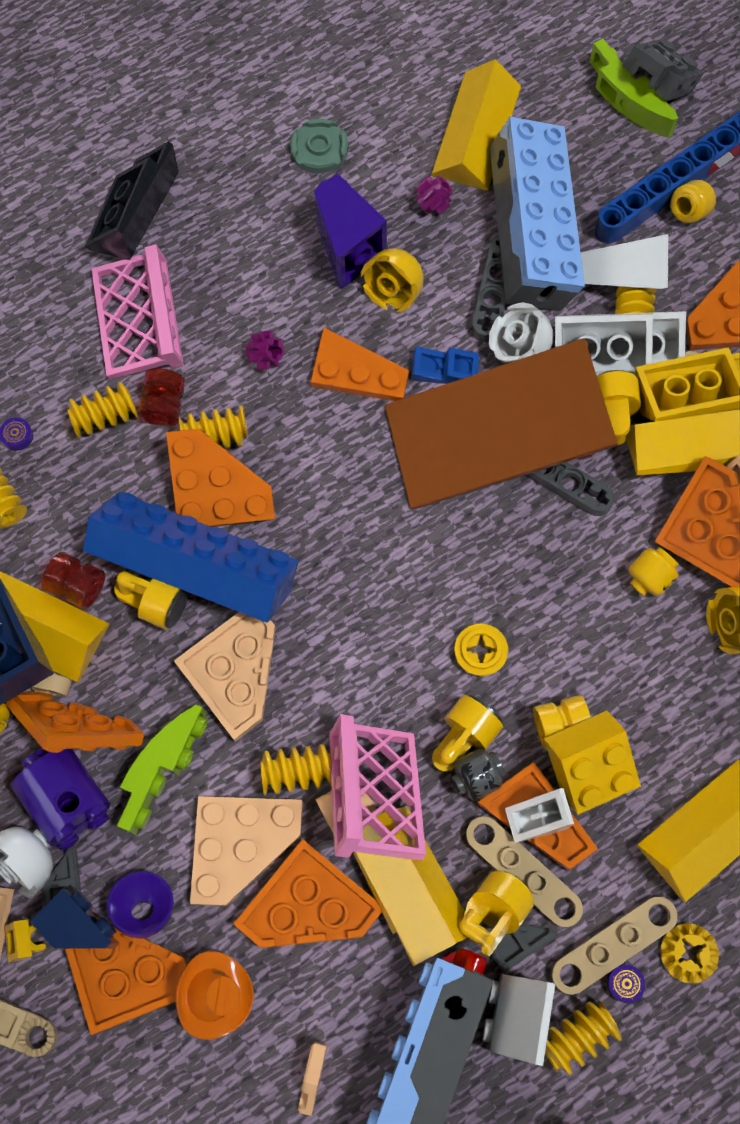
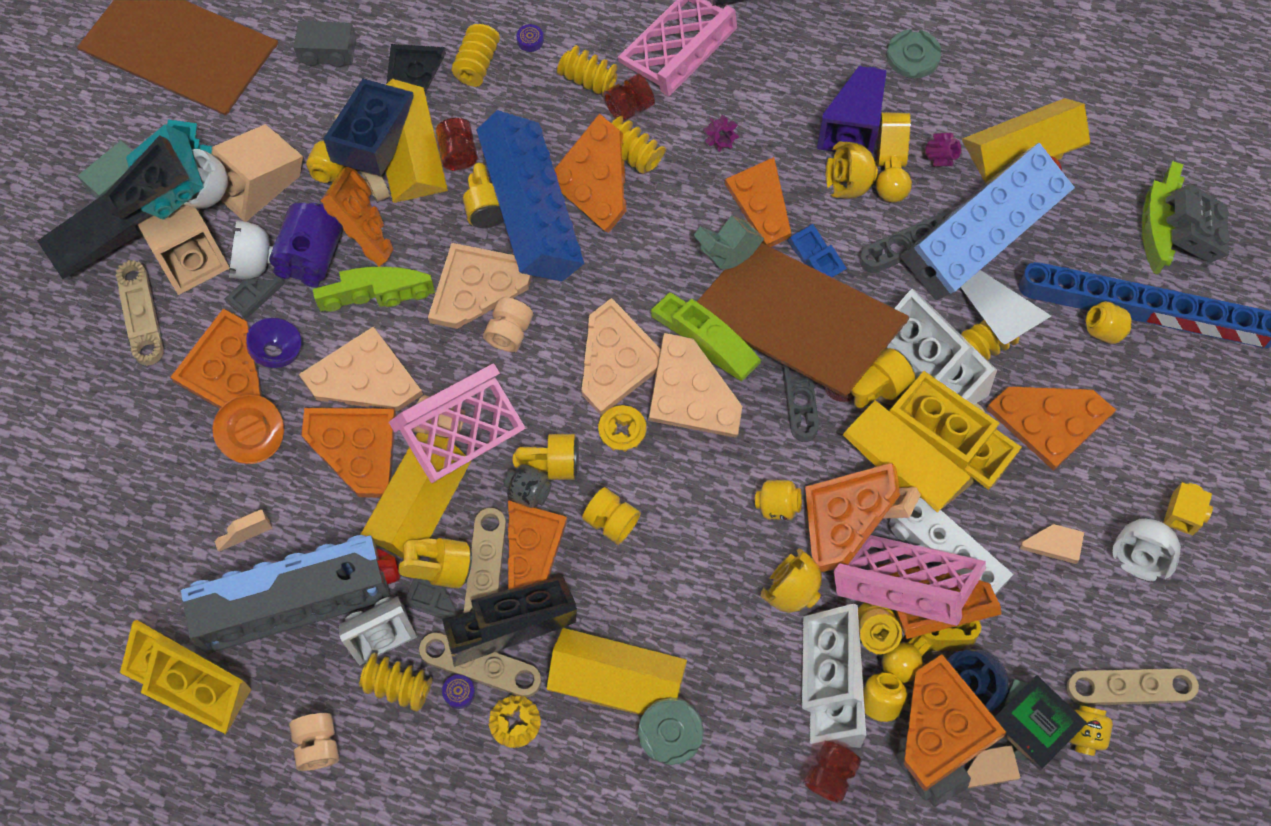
camera: 50 degrees right, 5 degrees down
(19, 941) = (198, 294): yellow tile -> none
(70, 925) = (229, 309): dark blue slope -> none
(295, 769) = (433, 367): yellow piece -> none
(300, 669) = (509, 322): none -> light nougat wheel
(381, 424) = (732, 244): none -> sand green brick
(405, 233) = (892, 152): none -> yellow beam
(409, 603) = (616, 357): none -> light nougat plate
(452, 509) = (711, 334): none -> lime slope
(494, 564) = (691, 391): none -> light nougat plate
(520, 333) = (882, 280): white cylinder -> none
(539, 816) = (528, 544): white slope -> none
(593, 762) = (594, 550): yellow brick -> none
(600, 887) = (509, 619): none -> black slope

